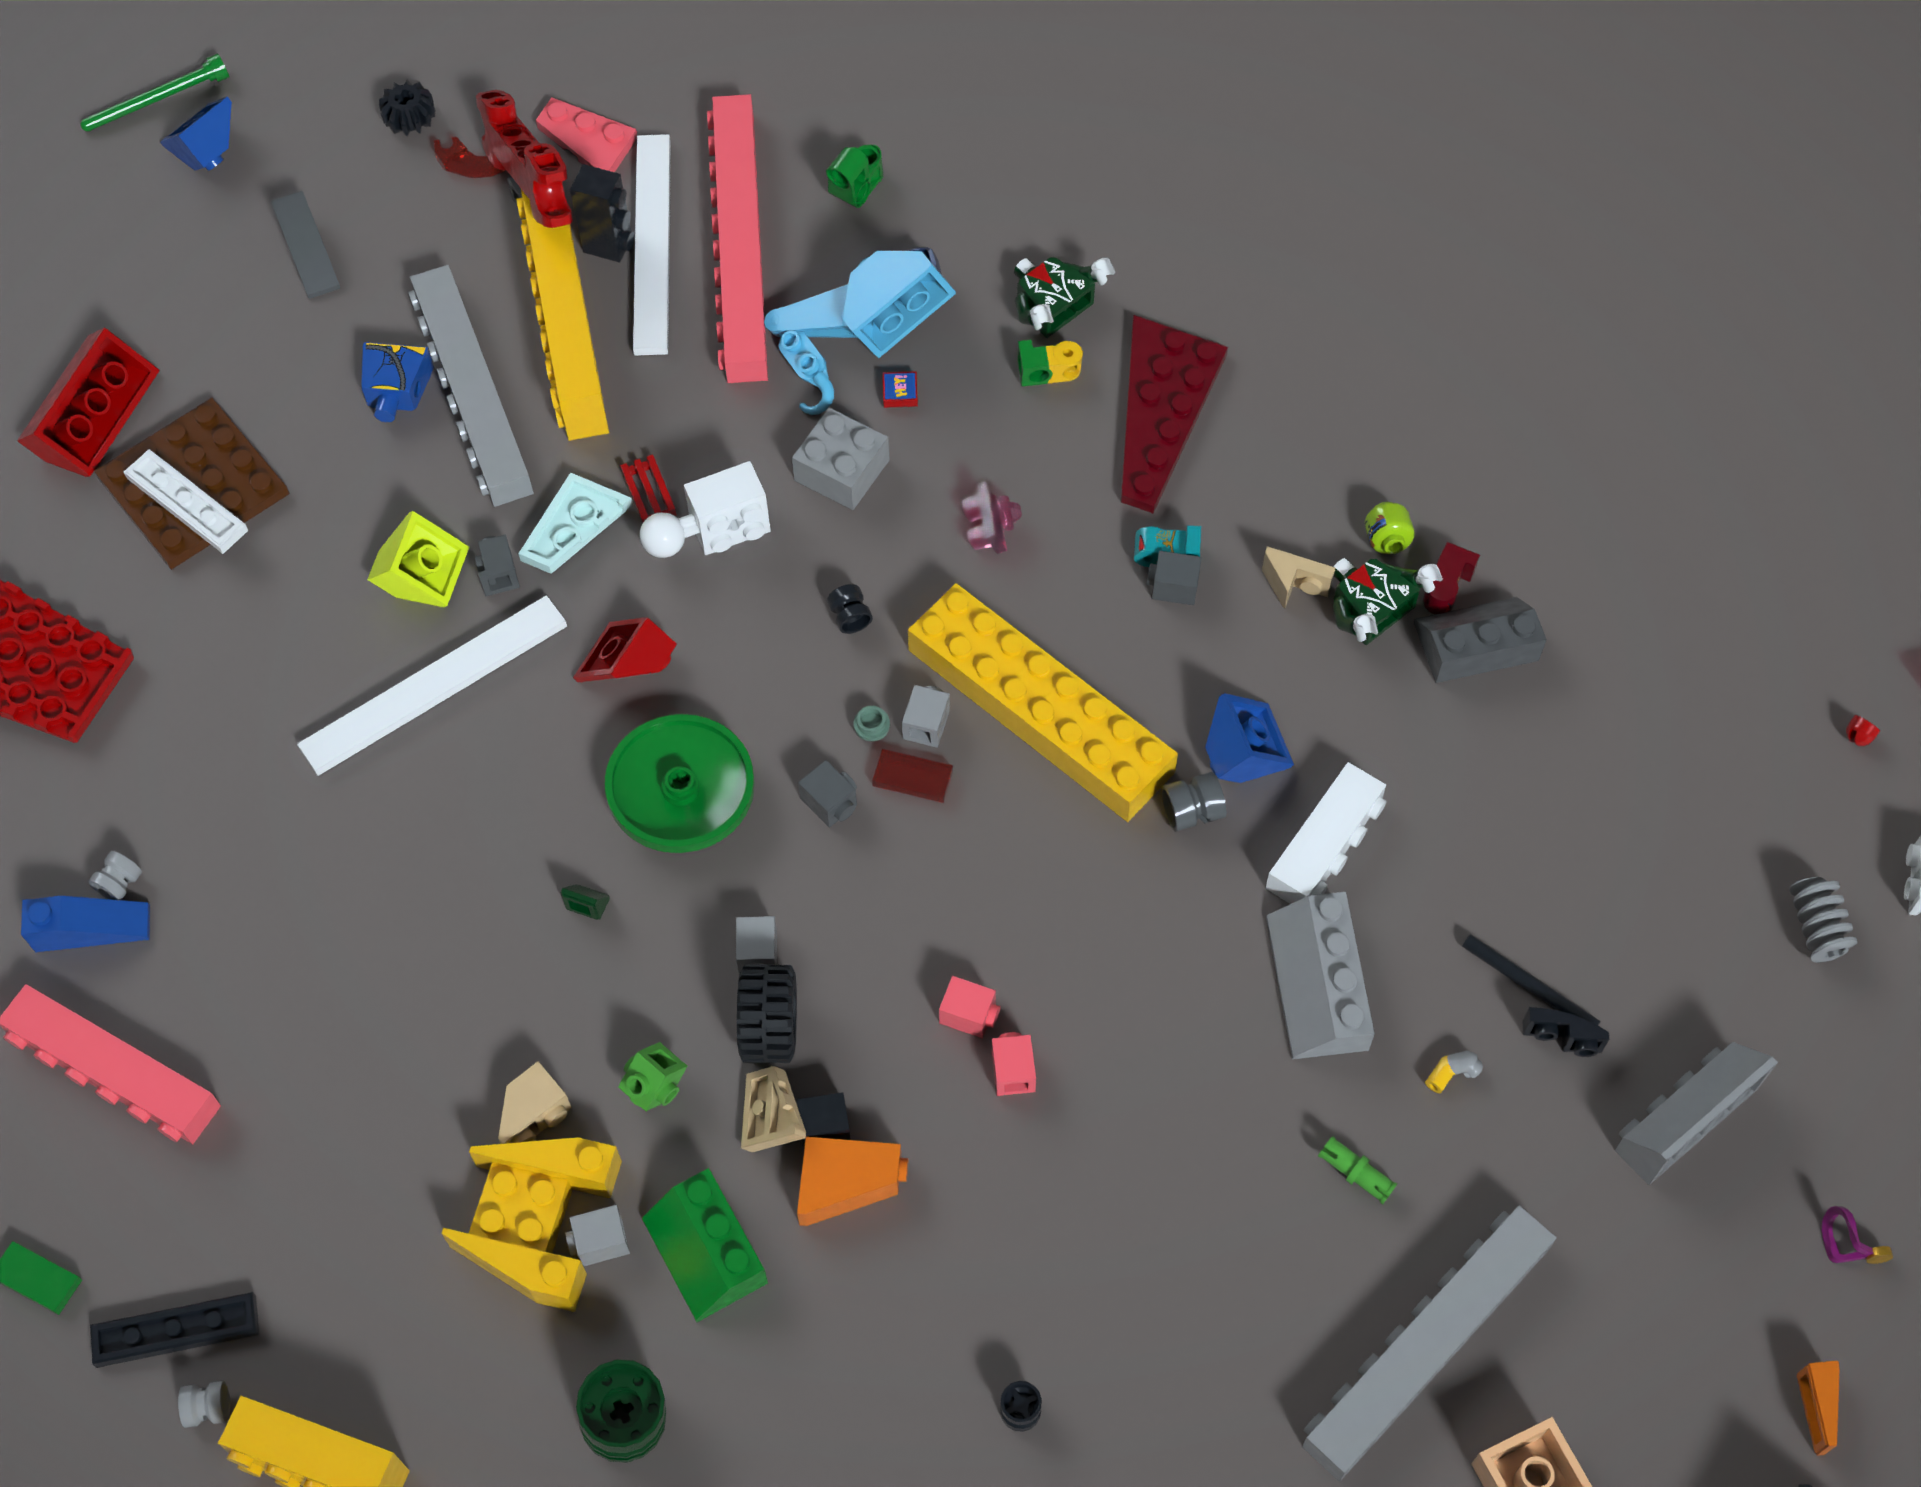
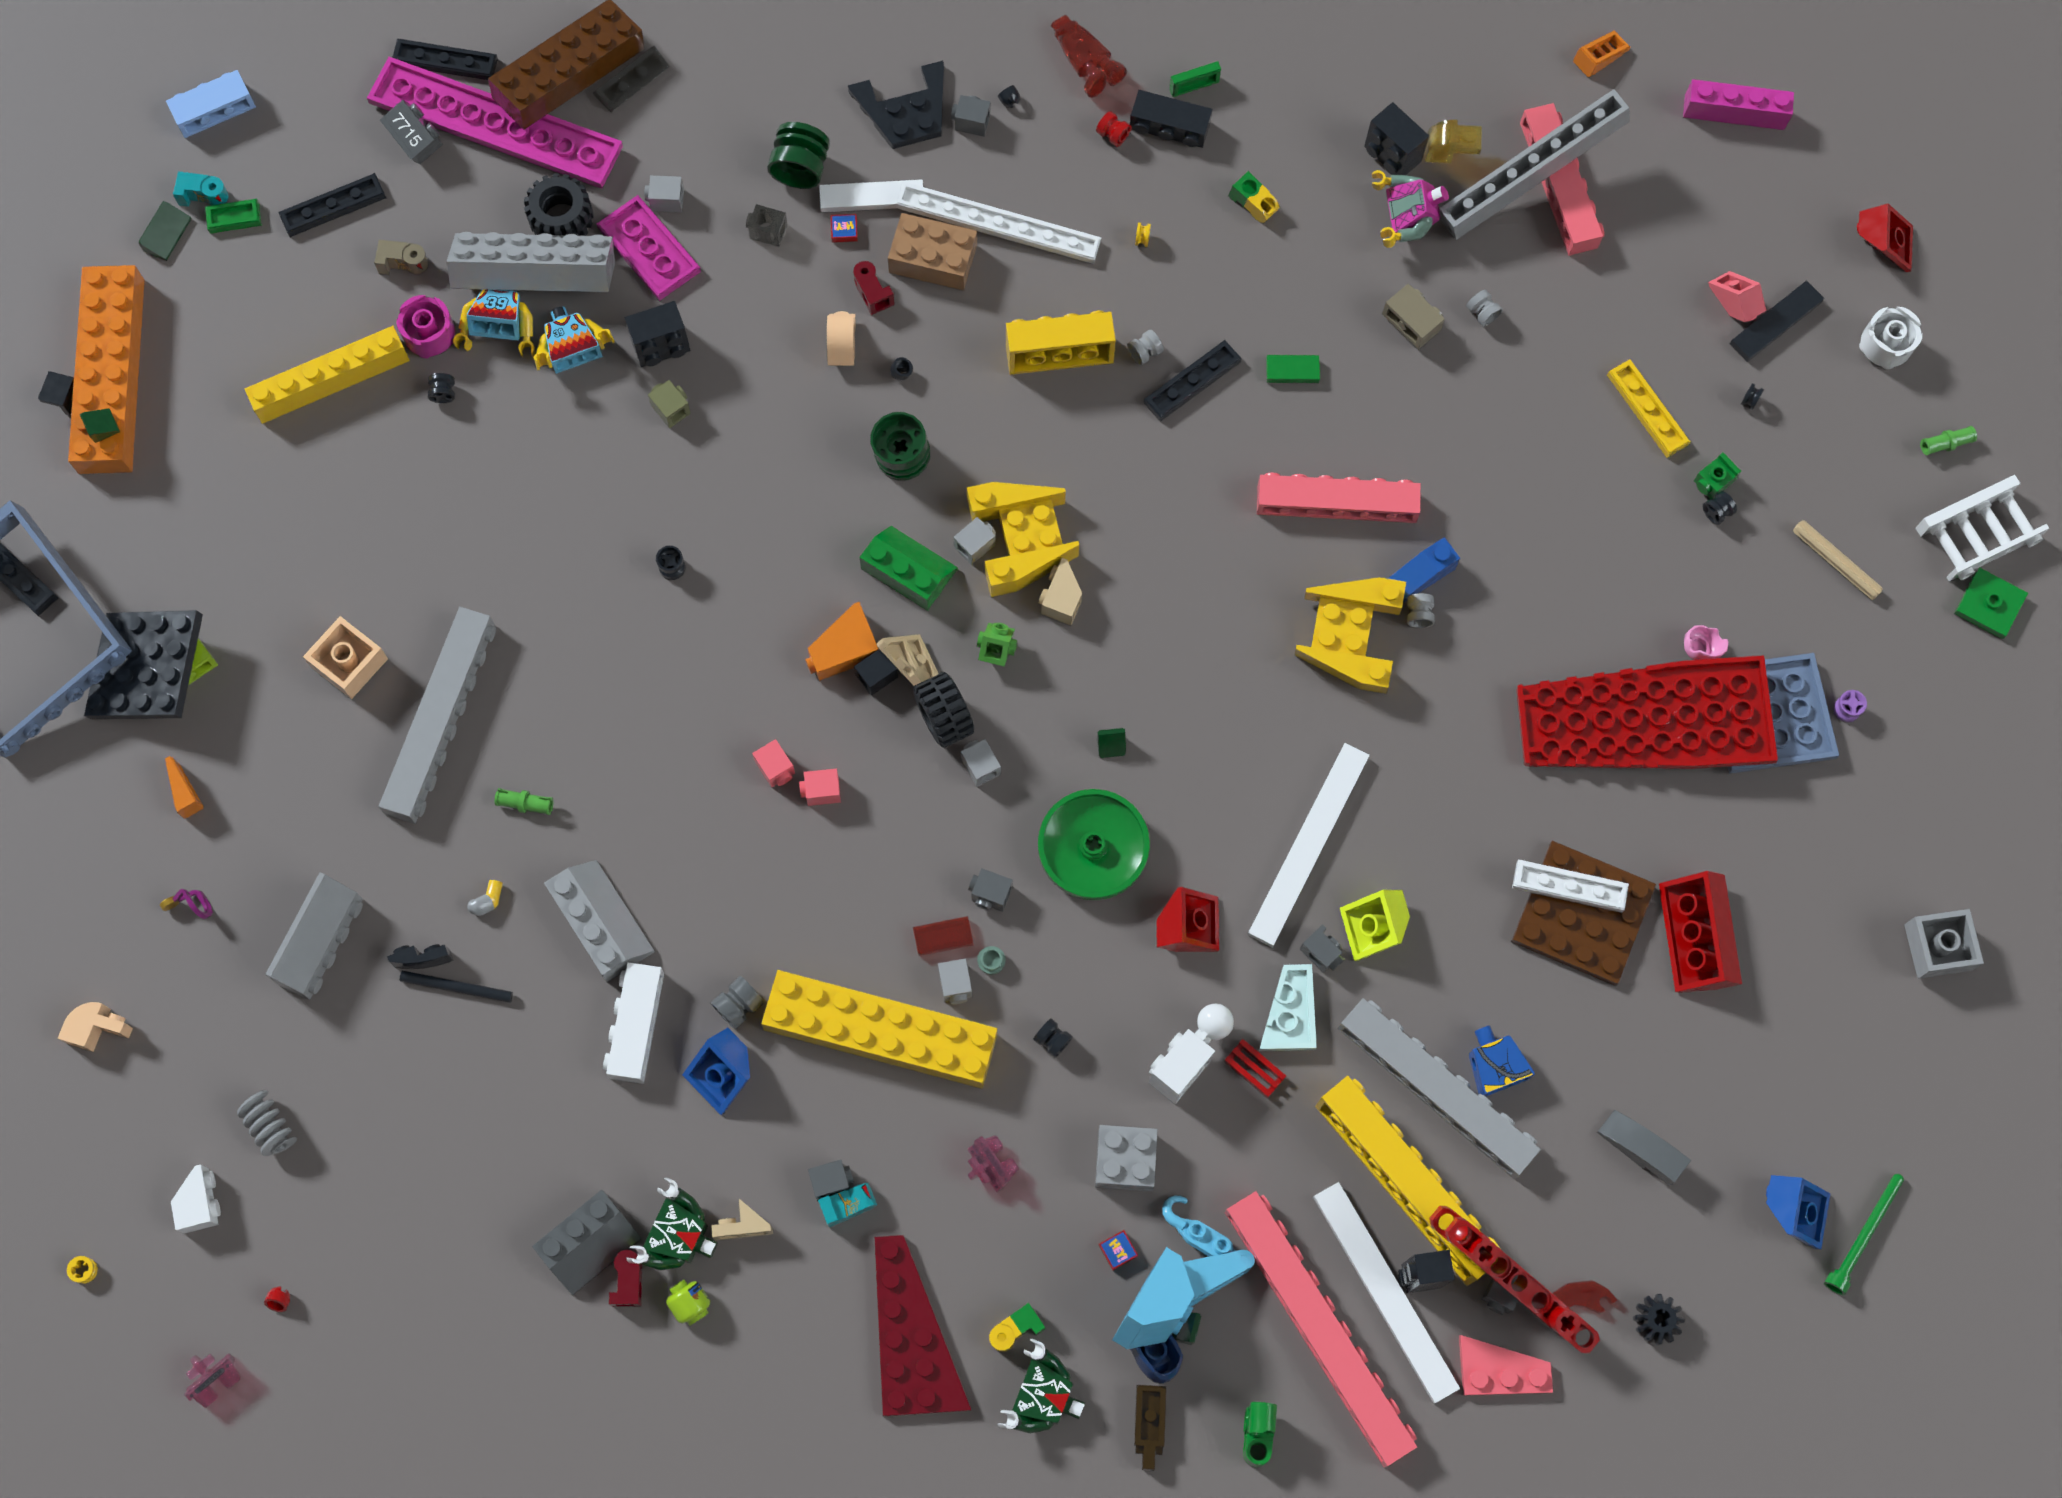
camera: 150 degrees right, 10 degrees up
(219, 894) = (1344, 630): none -> yellow wedge
(960, 229) = (1150, 1423): none -> dark brown hinge

